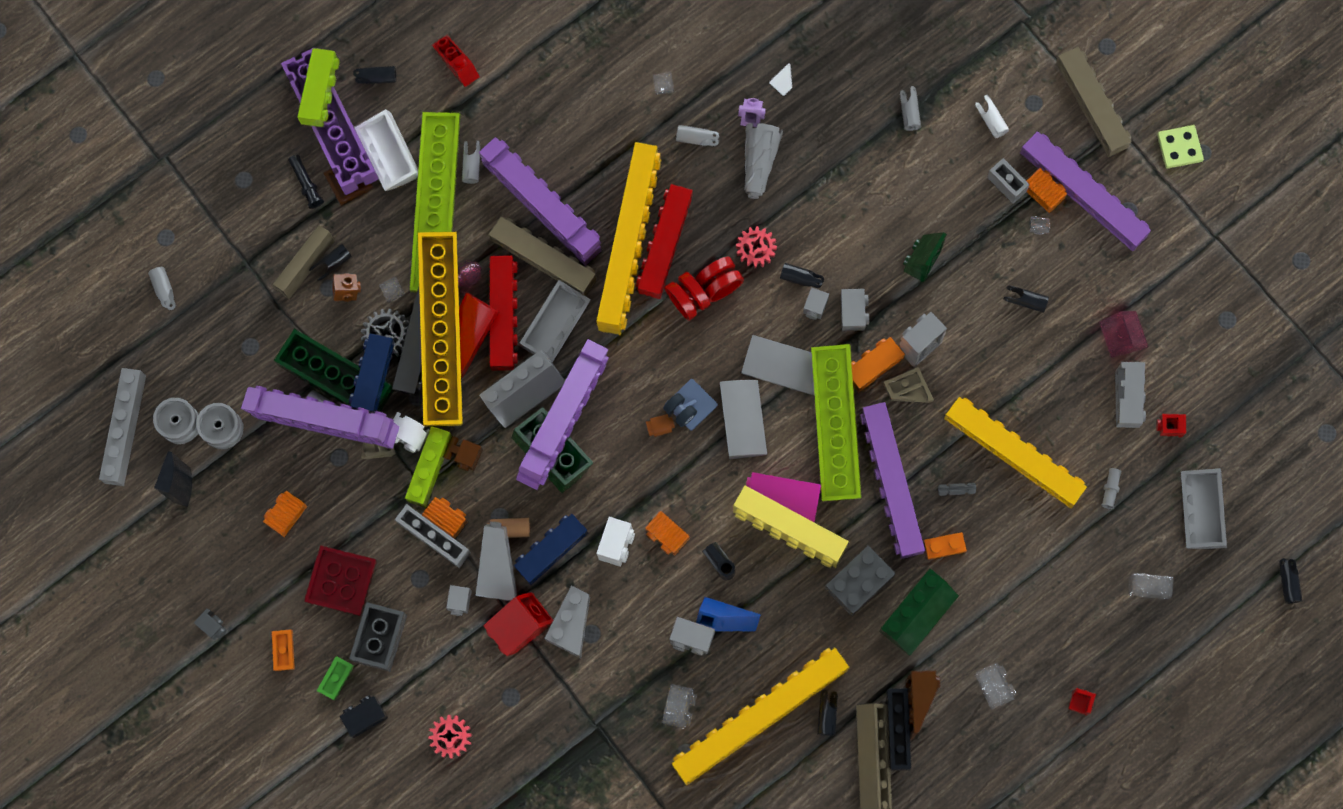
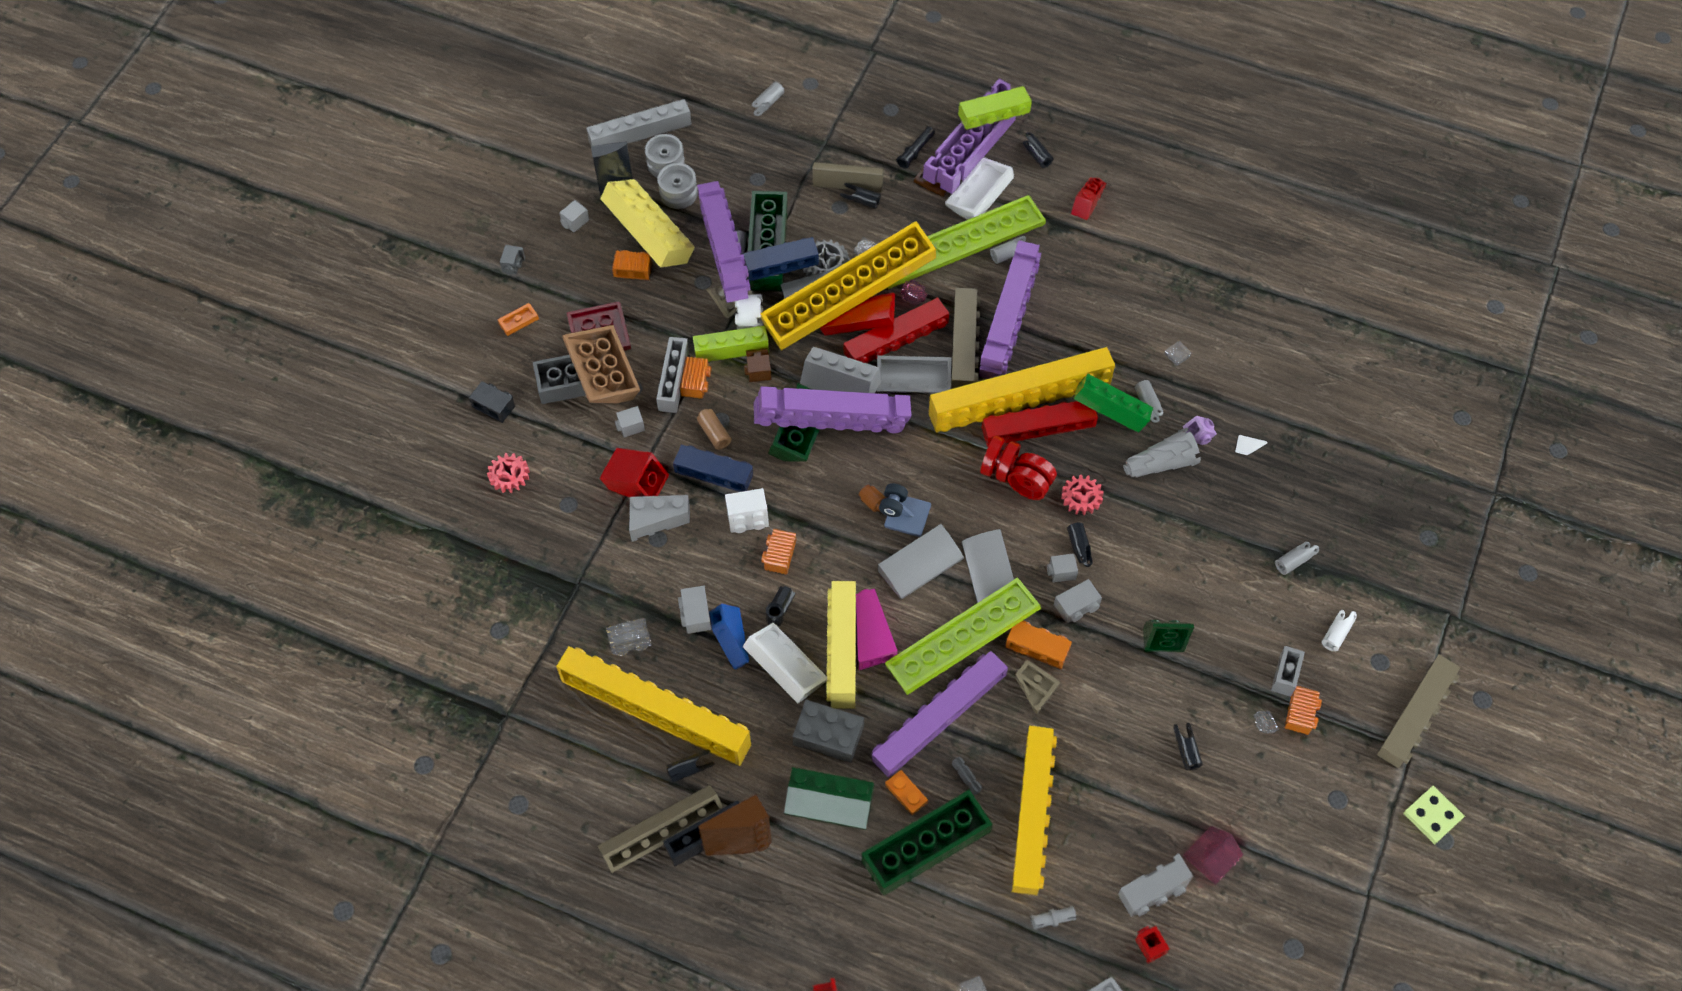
camera: 55 degrees right, 15 degrees down
(194, 541) = (574, 216): none -> light grey brick
(248, 476) = (647, 223): none -> light yellow brick
(335, 678) = (514, 366): bright green plate -> none
(345, 287) = (845, 213): dark orange brick -> none
(392, 596) = (602, 365): none -> medium nougat slope
(495, 567) = (668, 433): light grey slope -> none
(688, 169) = (1113, 403): none -> green brick
(777, 584) = (785, 662): none -> white slope
(922, 338) = (1085, 665): light grey brick -> none
(995, 686) = (796, 903): clear brick -> none
(1000, 553) = (926, 842): none -> dark green brick
(1085, 191) = (1326, 748): medium lavender brick -> none

